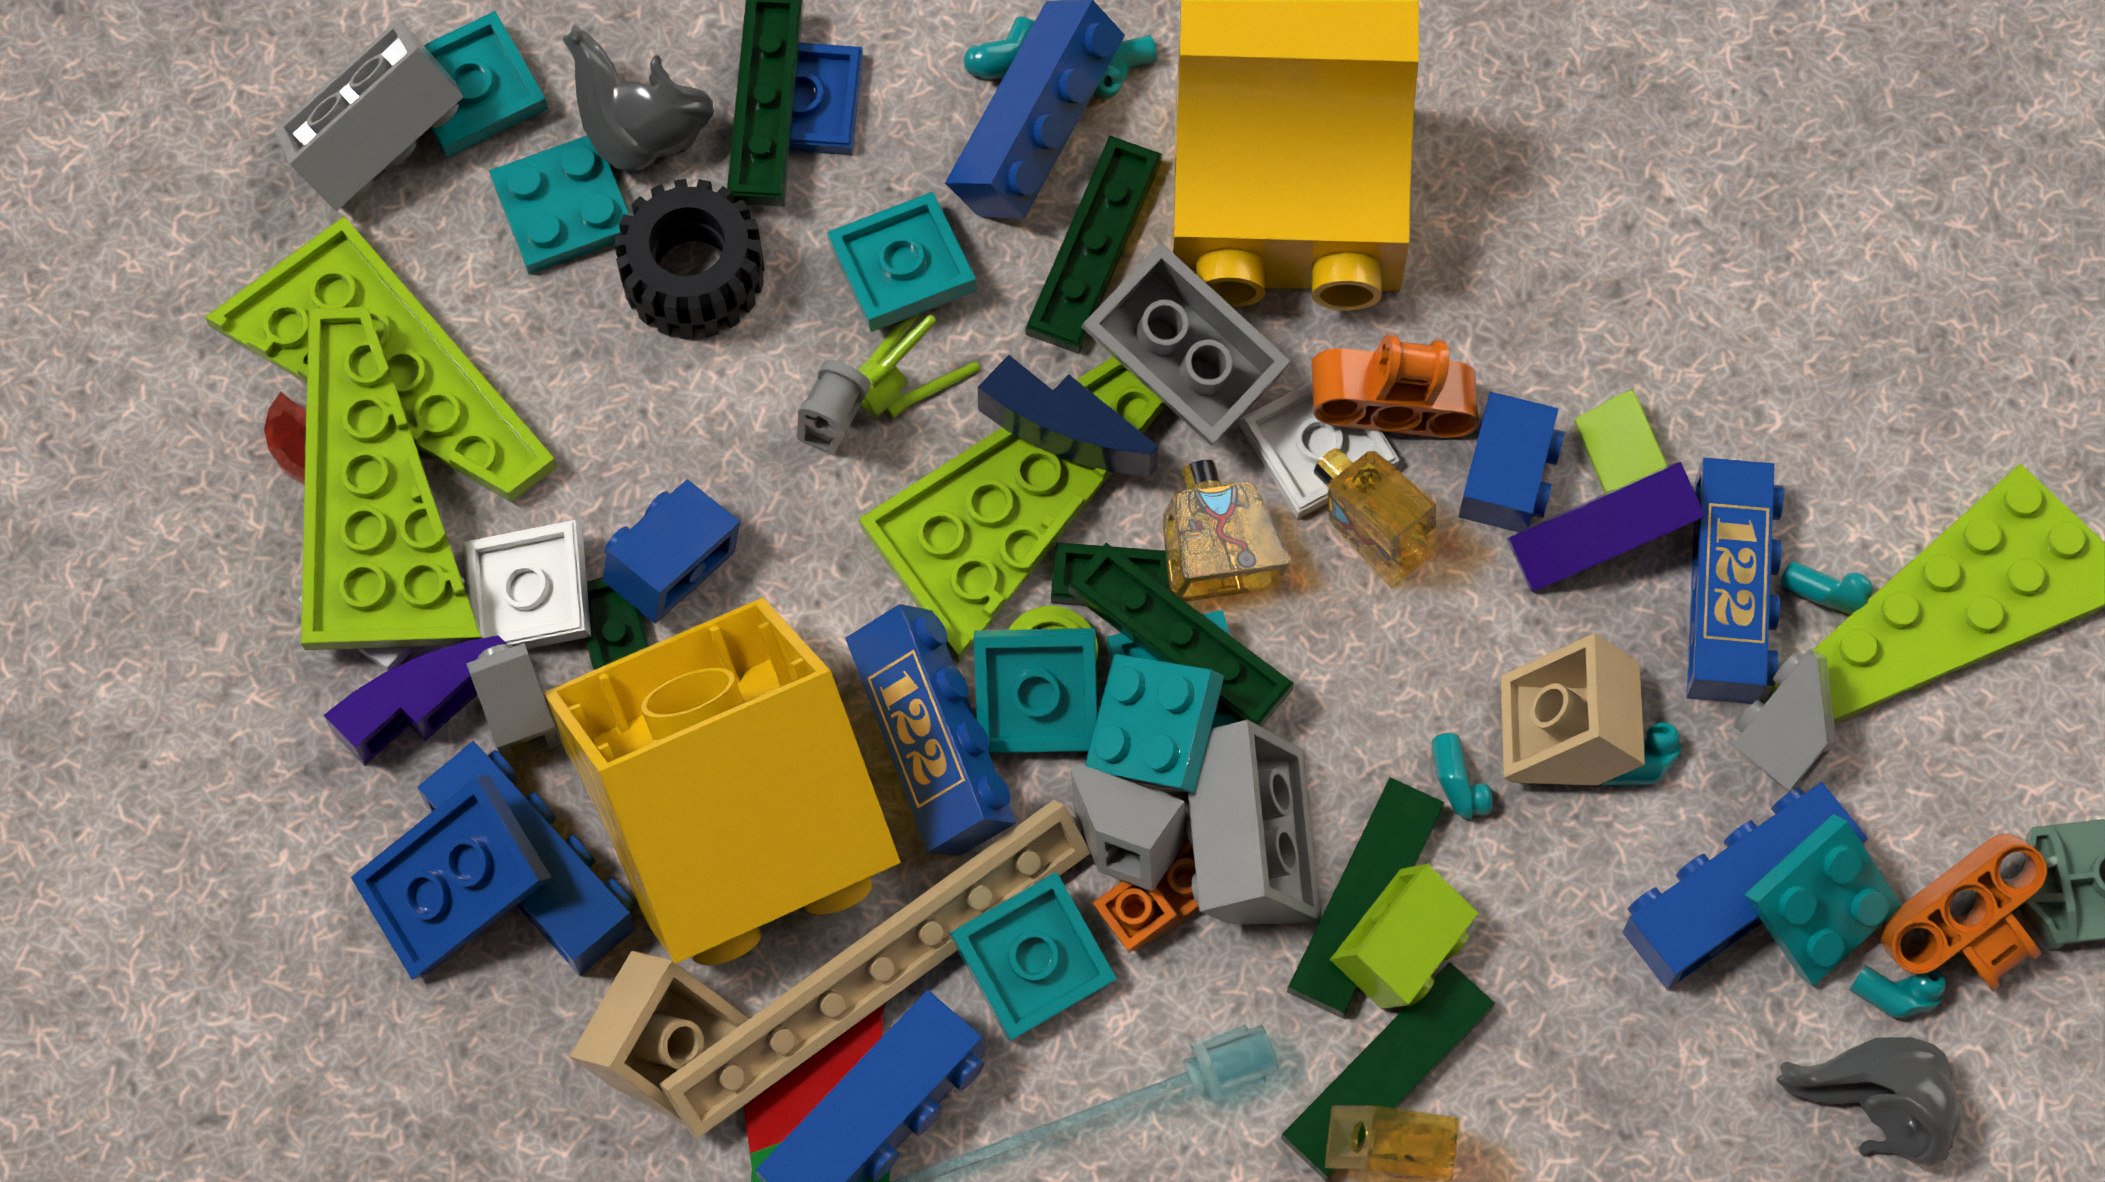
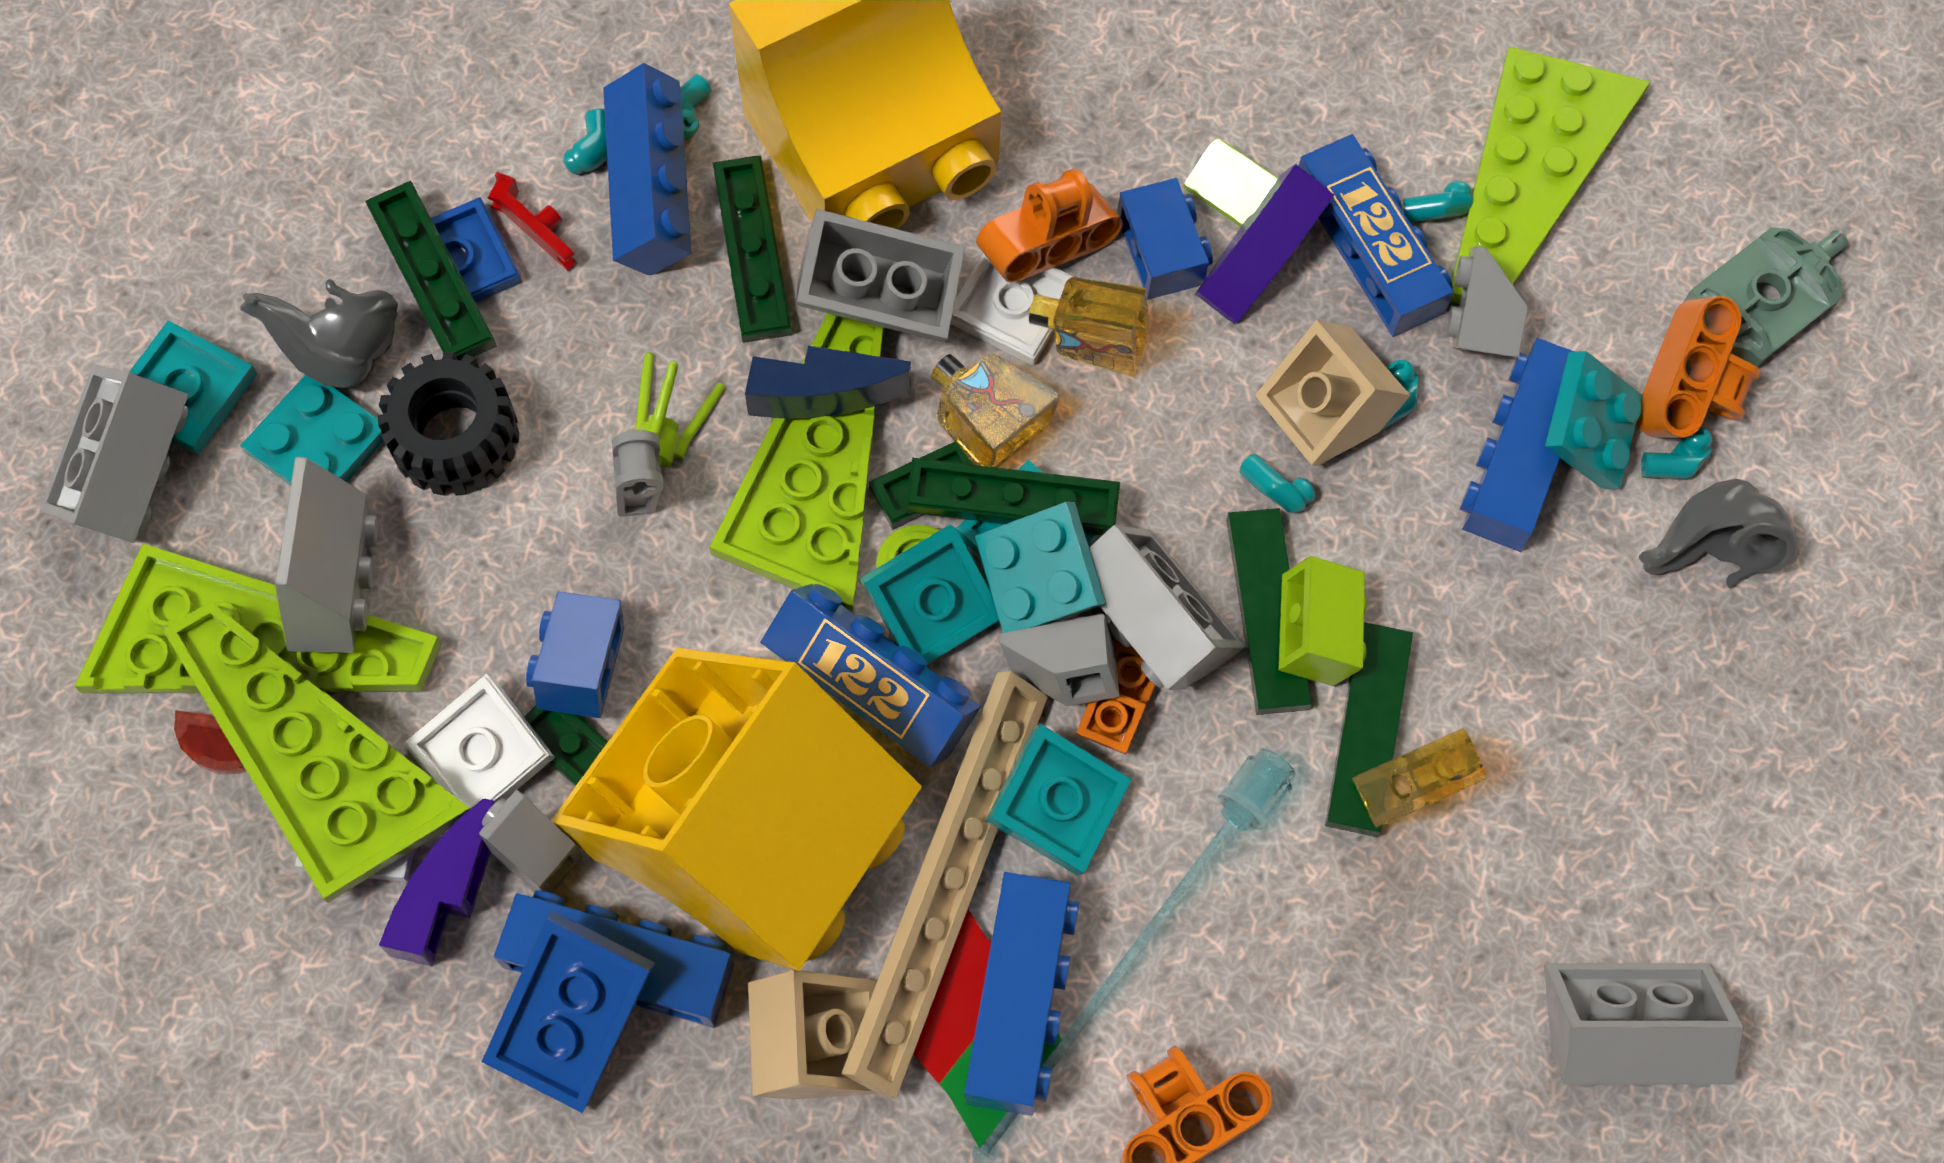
camera: 35 degrees left, 0 degrees up
(490, 326) = (324, 561): none -> light grey slope
(885, 59) = (536, 227): none -> red piece
(902, 261) = (616, 337): teal plate -> none

